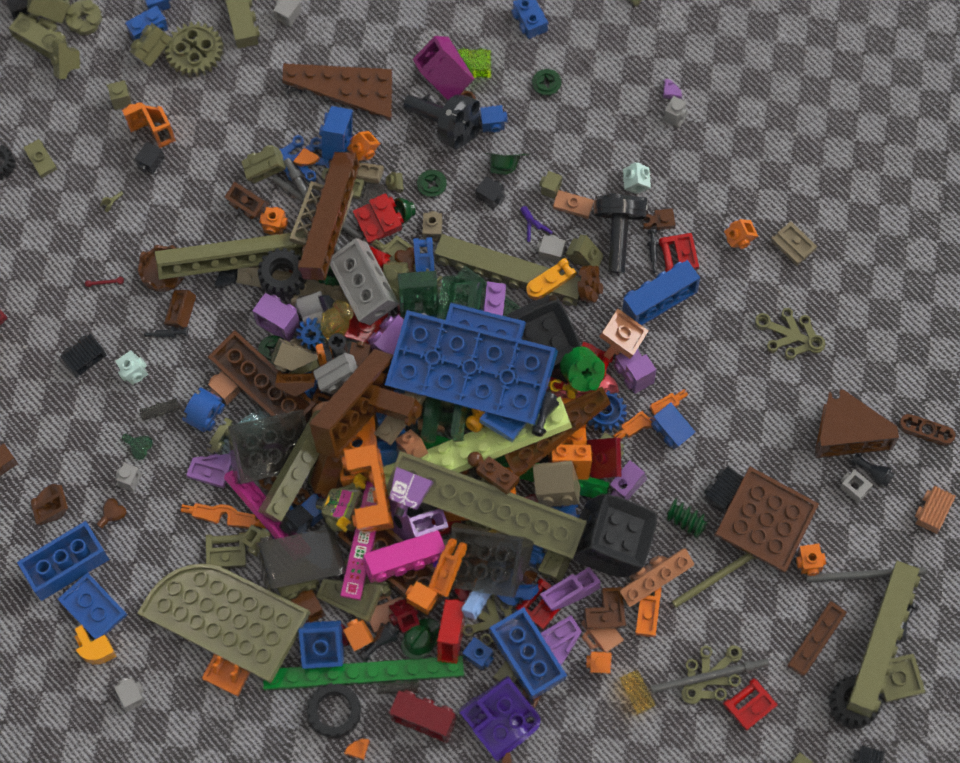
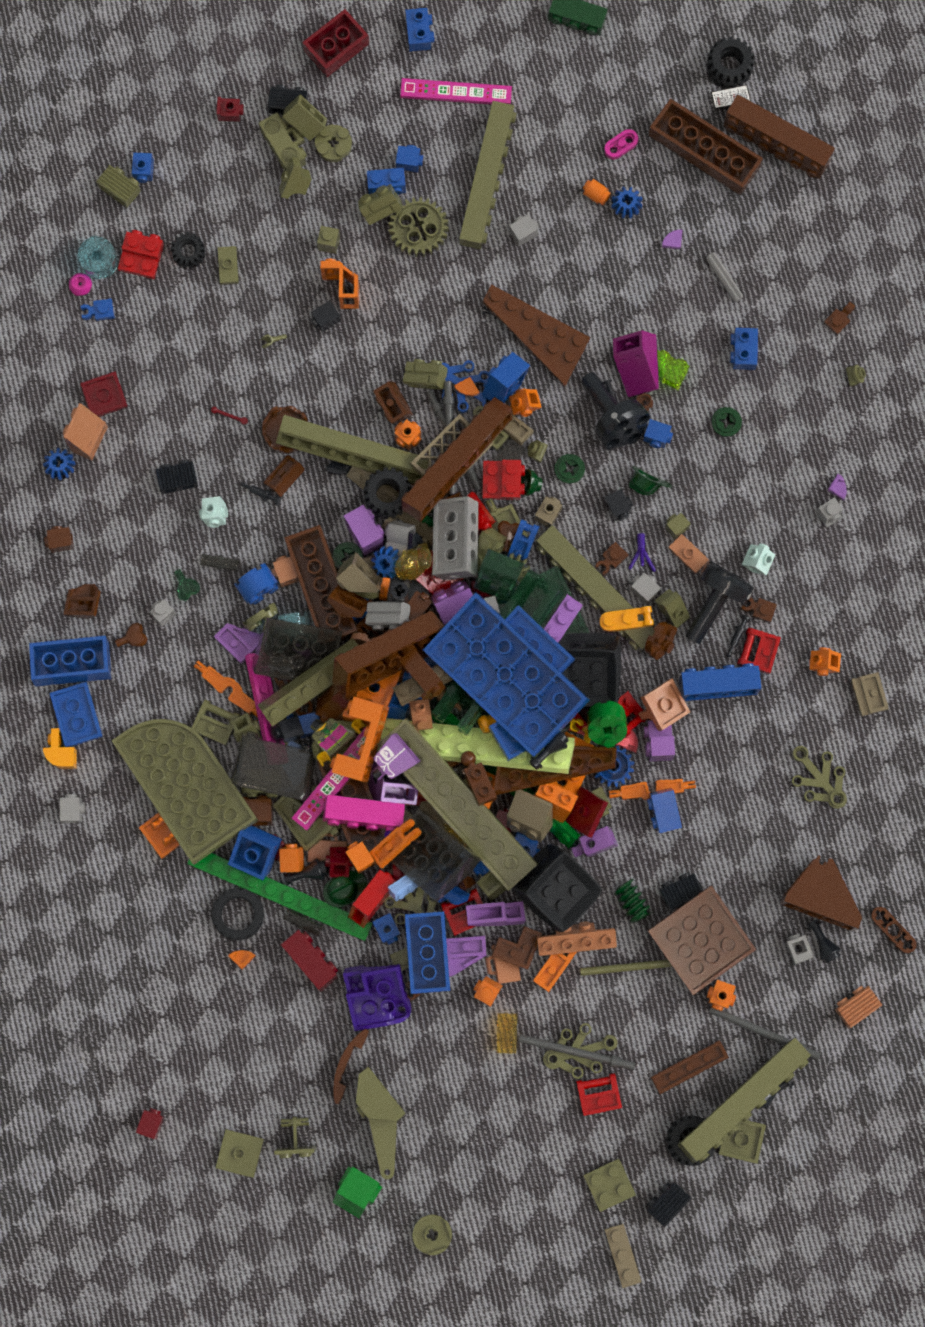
camera: 25 degrees right, 10 degrees up
(509, 238) = (613, 557): none -> reddish brown plate

